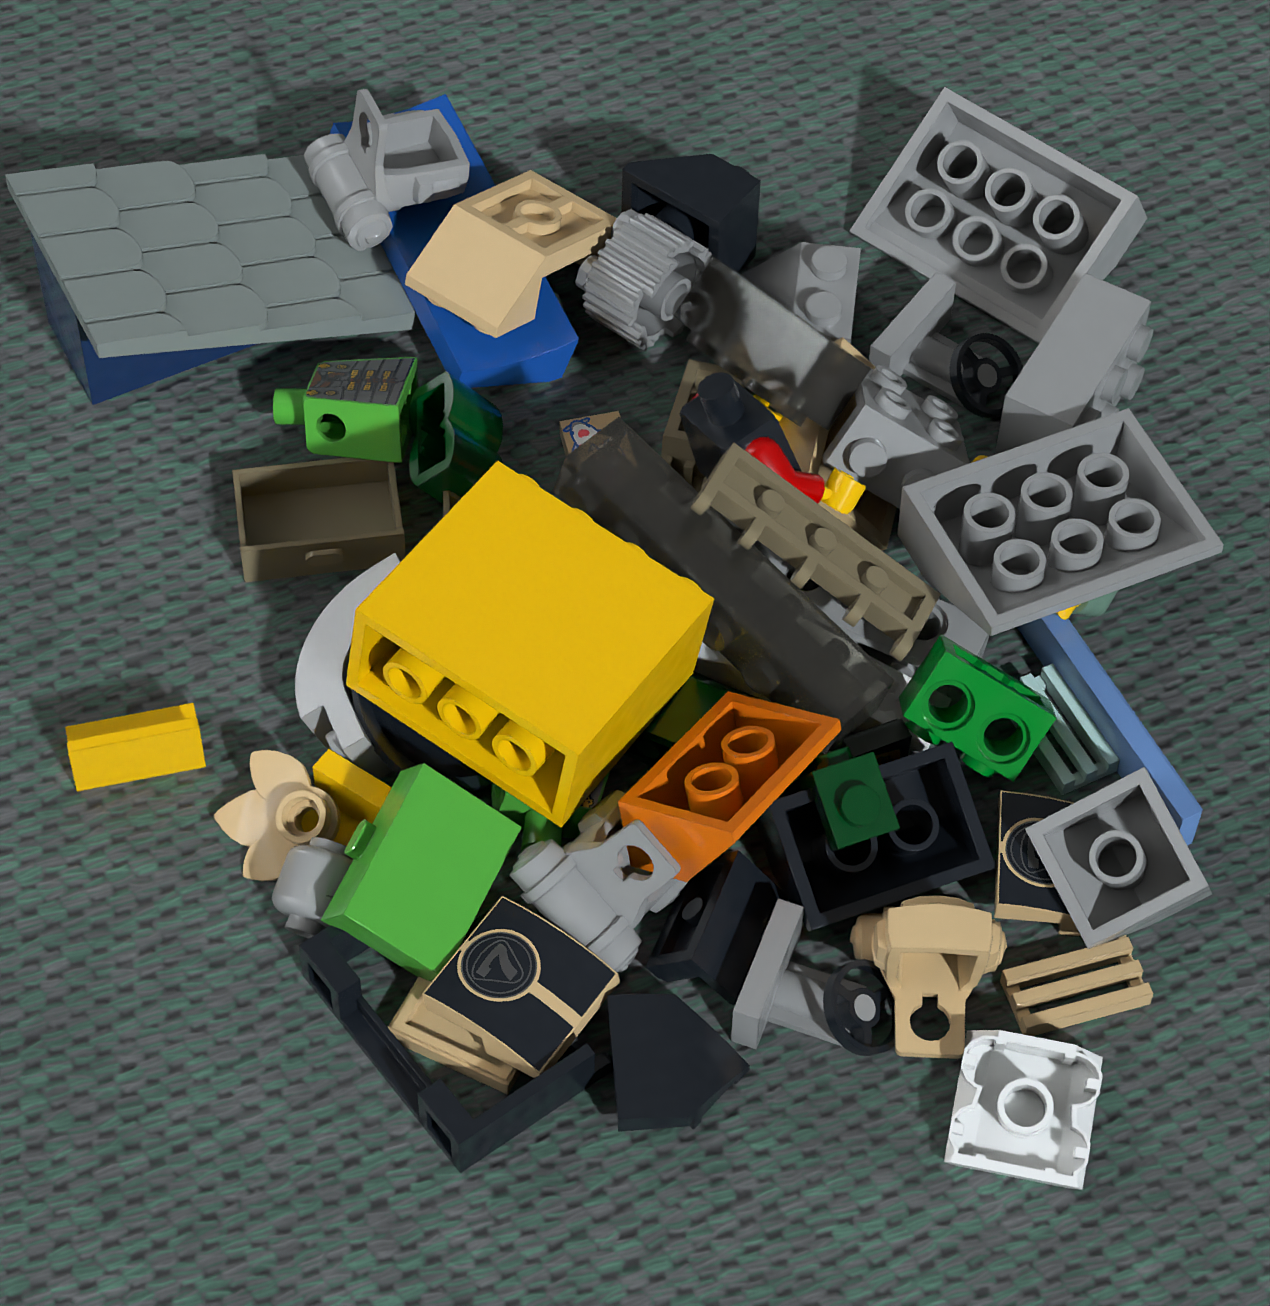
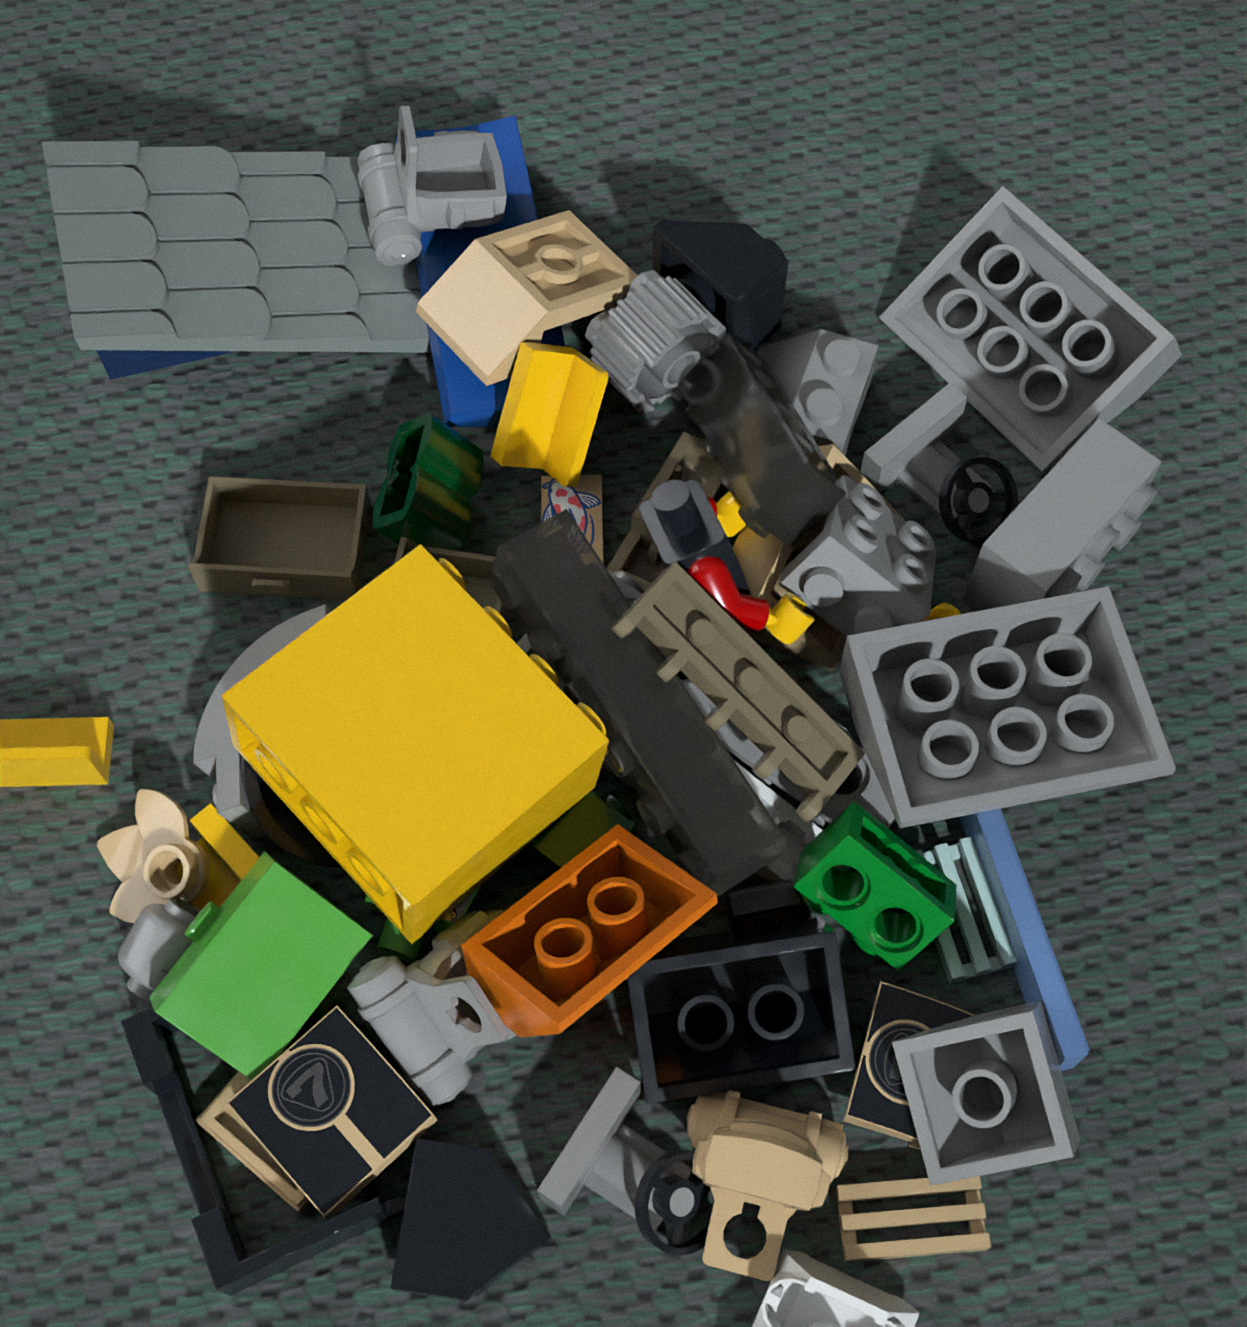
camera: 15 degrees right, 10 degrees up
(353, 408) = (341, 431): bright green torso -> none
(562, 355) = (550, 411): none -> yellow panel
(716, 925) = (553, 1080): black panel -> none
(848, 797) = (713, 974): dark green bracket -> none

